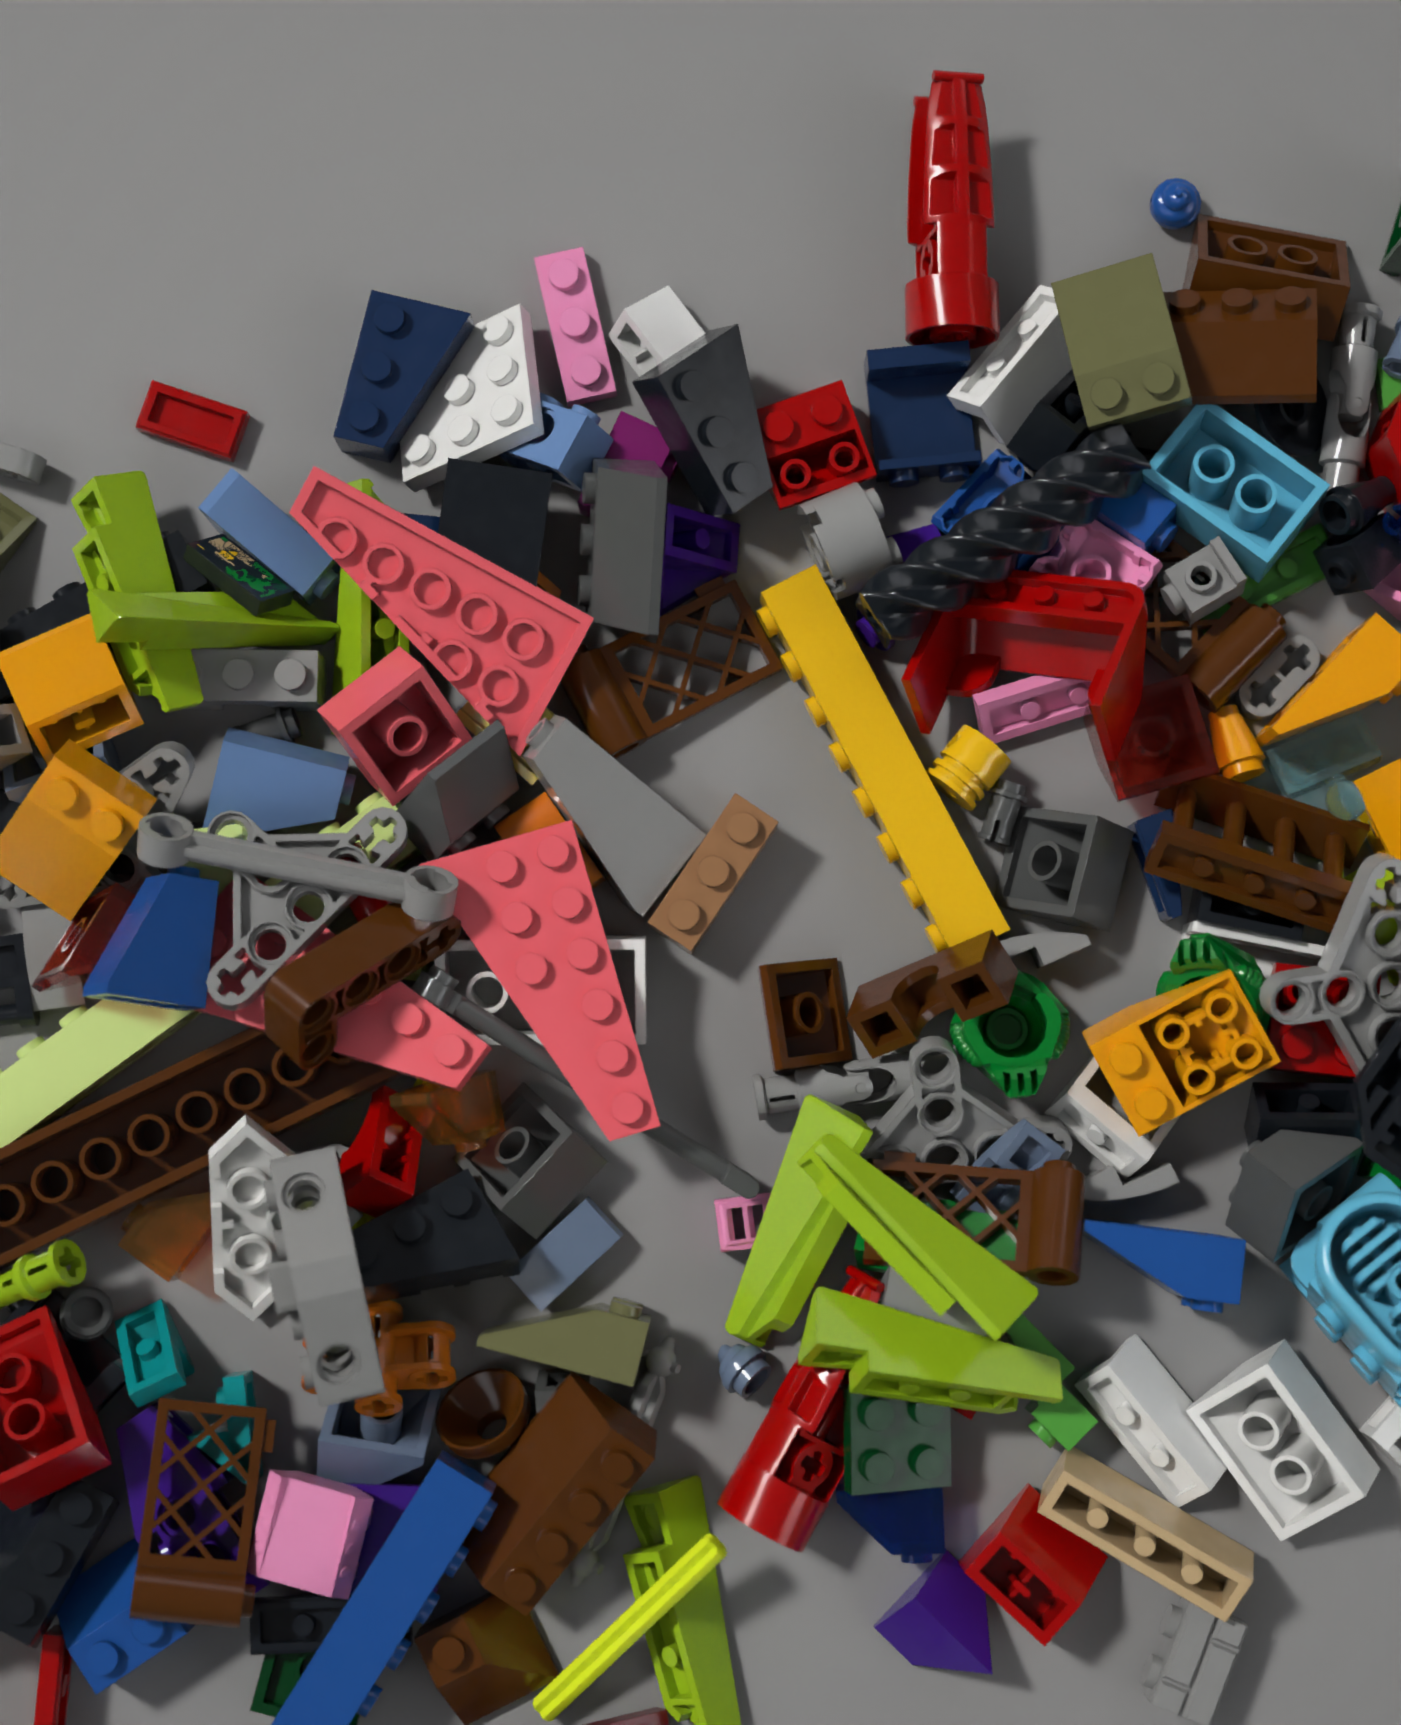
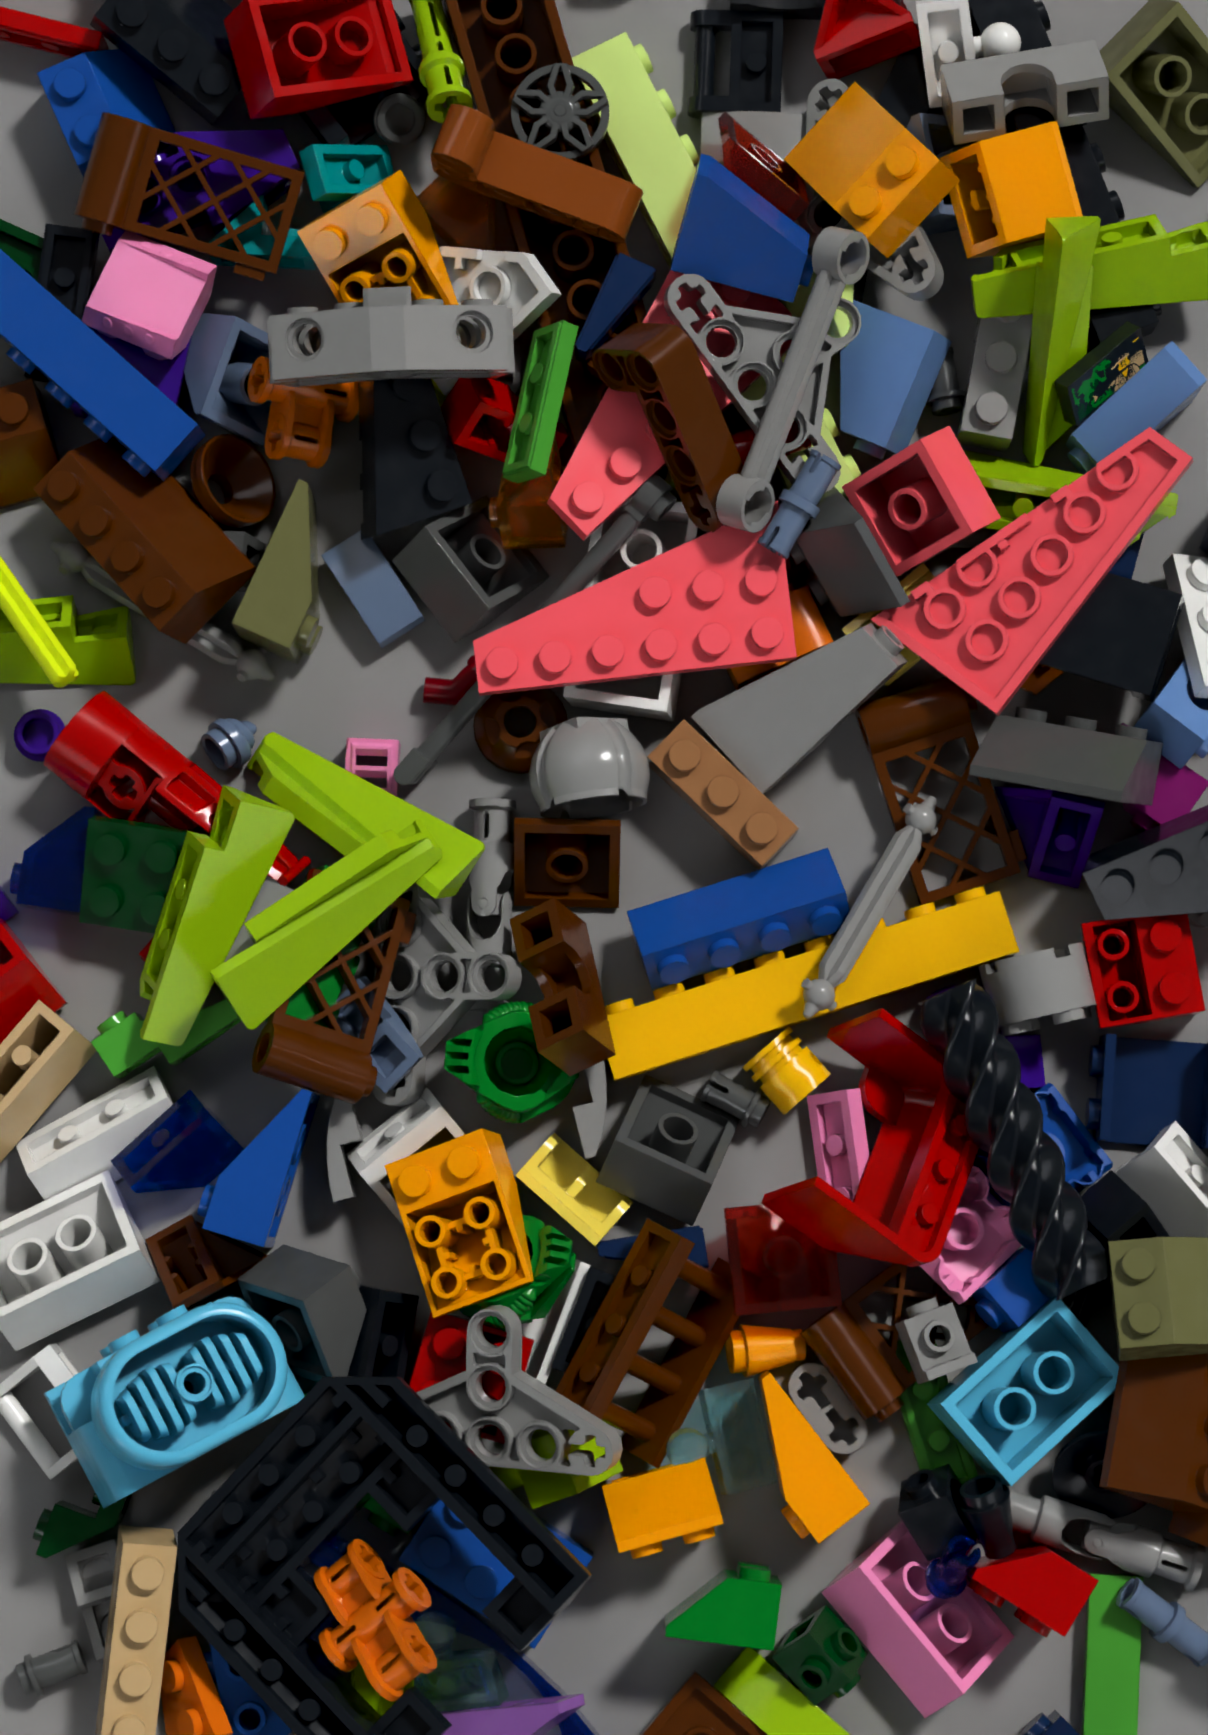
camera: 100 degrees right, 0 degrees up
(59, 1149) = (560, 110): none -> dark grey wheel
(130, 1163) = (532, 178): none -> dark orange beam
(224, 1307) = (379, 242): none -> light orange slope
(234, 1055) = (620, 292): none -> dark blue slope
(359, 1115) = (539, 402): none -> bright green tile
(420, 840) = (799, 503): none -> sand blue pin
(653, 1157) = (447, 690): none -> dark red arm
(704, 1075) = (501, 748): none -> reddish brown piece
(711, 1007) = (589, 769): none -> light grey piece
(767, 1562) = (36, 733): none -> dark purple plate
(800, 712) = (869, 907): none -> light grey wheel
(830, 835) = (739, 918): none -> blue brick
(1118, 957) = (571, 1189): none -> light yellow hinge
(1156, 1344) = (179, 1149): none -> clear blue slope
(1268, 1308) = (198, 1261): none -> reddish brown slope

